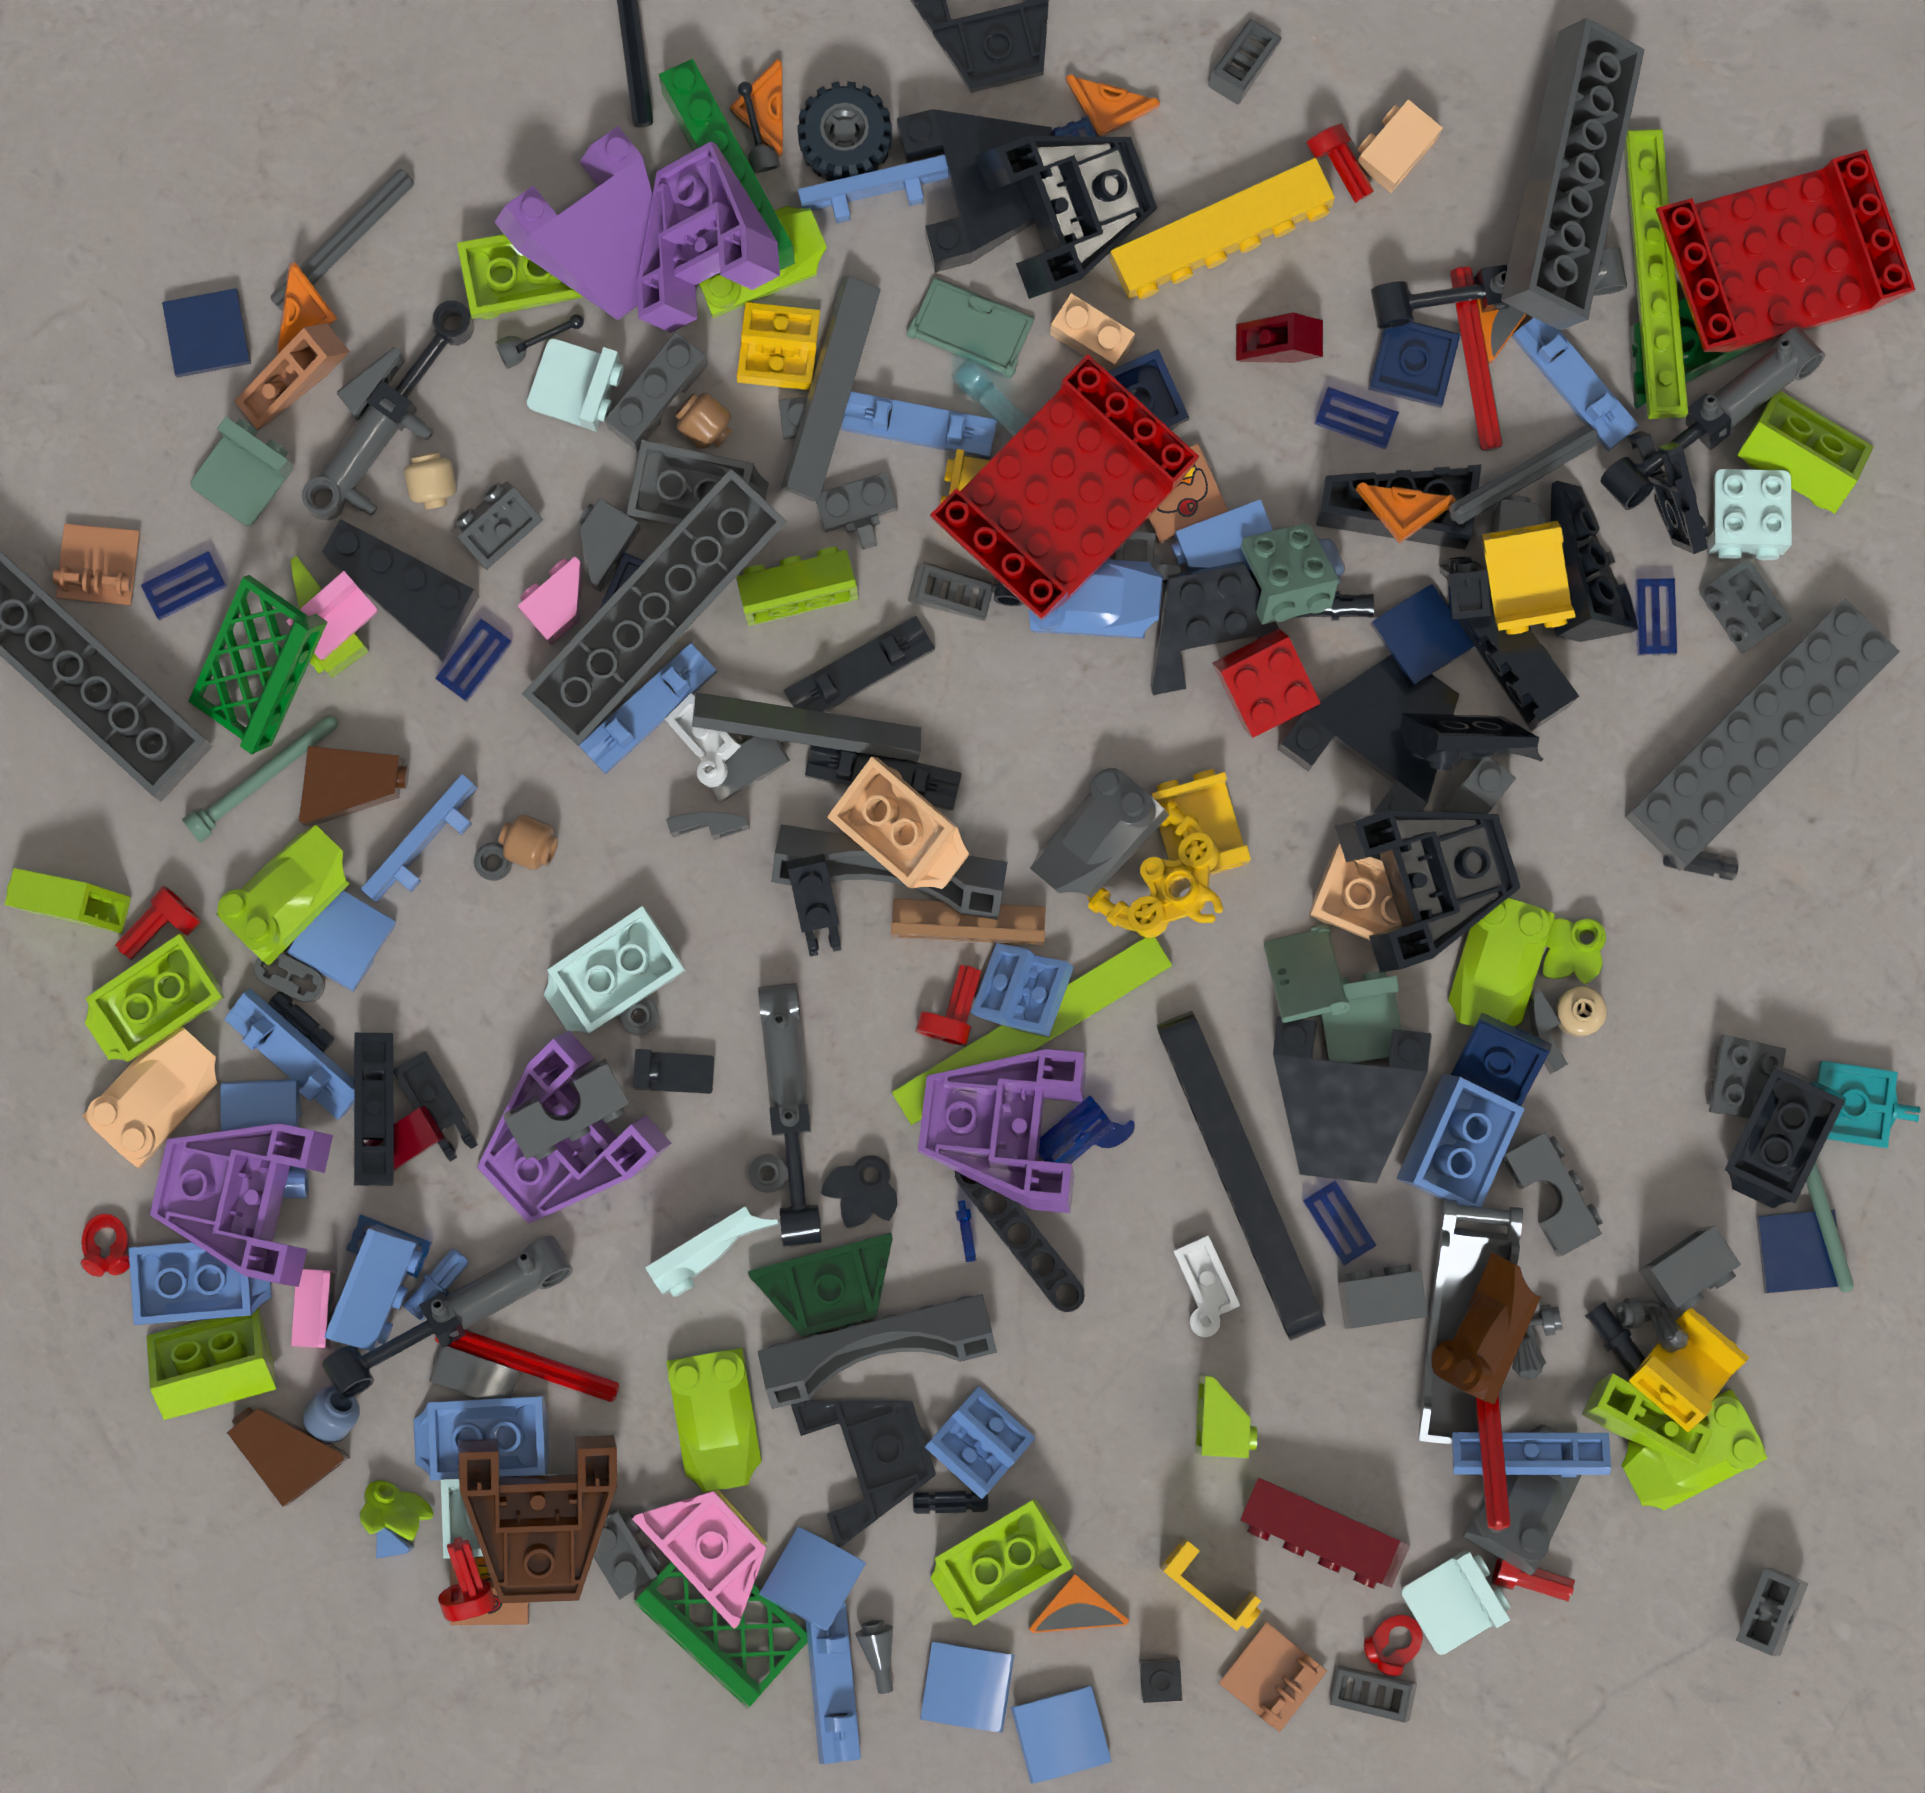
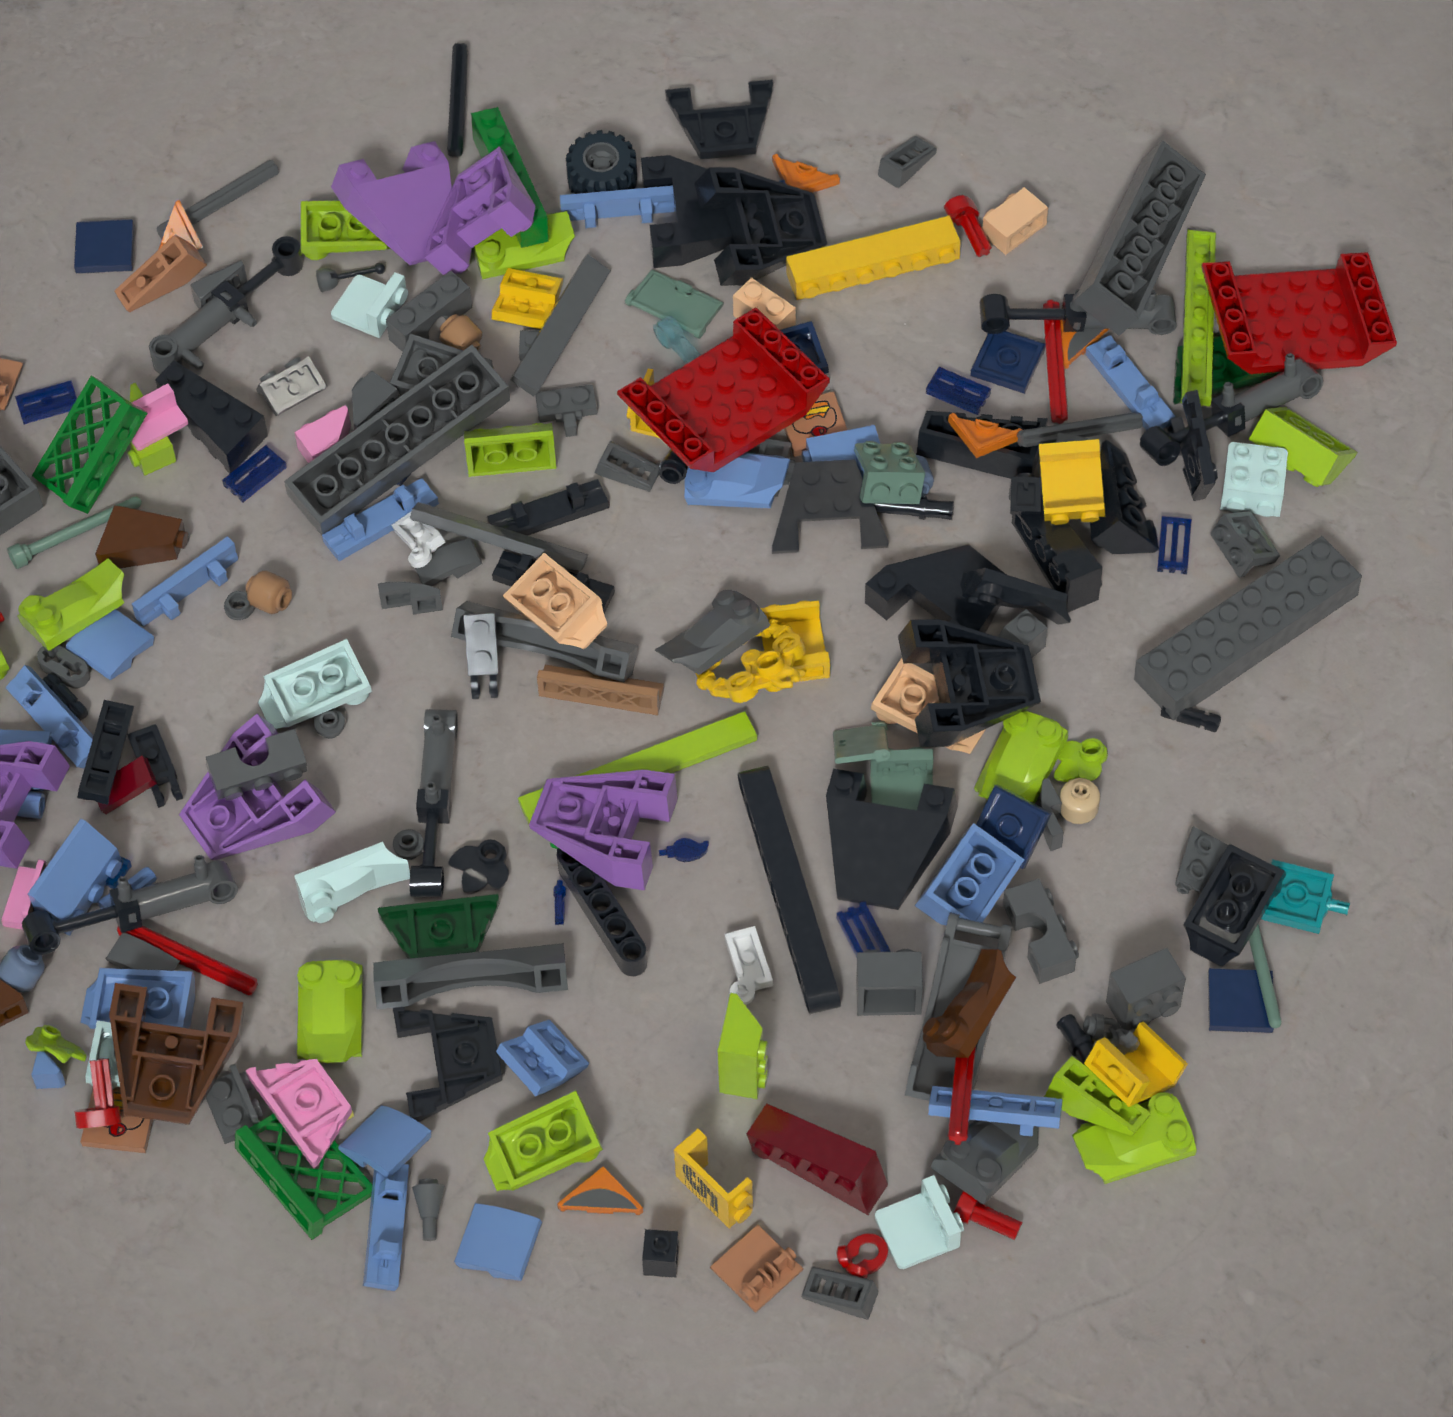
camera: 10 degrees right, 25 degrees down
(242, 472) = (111, 330): sand green bracket -> none
(430, 480) = (247, 351): tan head -> none
(673, 1072) = (343, 763): black bracket -> none
(761, 156) = (538, 177): hinge -> none
(768, 107) = (545, 152): orange tile -> none
(919, 425) = (619, 357): medium blue hinge -> none
(948, 1502) = (509, 1101): black axle -> none
(954, 1026) = (575, 757): red piece -> none
(1022, 990) = (634, 737): medium blue slope -> none
(1061, 1734) = (570, 1288): medium blue slope -> none
(1071, 1129) = (666, 838): clear blue tile -> none
(1266, 683) = (859, 544): red brick -> none
(1280, 339) = (907, 330): dark red slope -> none
(1422, 634) = (988, 534): dark blue slope -> none
(1529, 1359) = (1004, 1048): dark grey piece -> none
(1772, 1611) = (1186, 1261): dark grey brick -> none

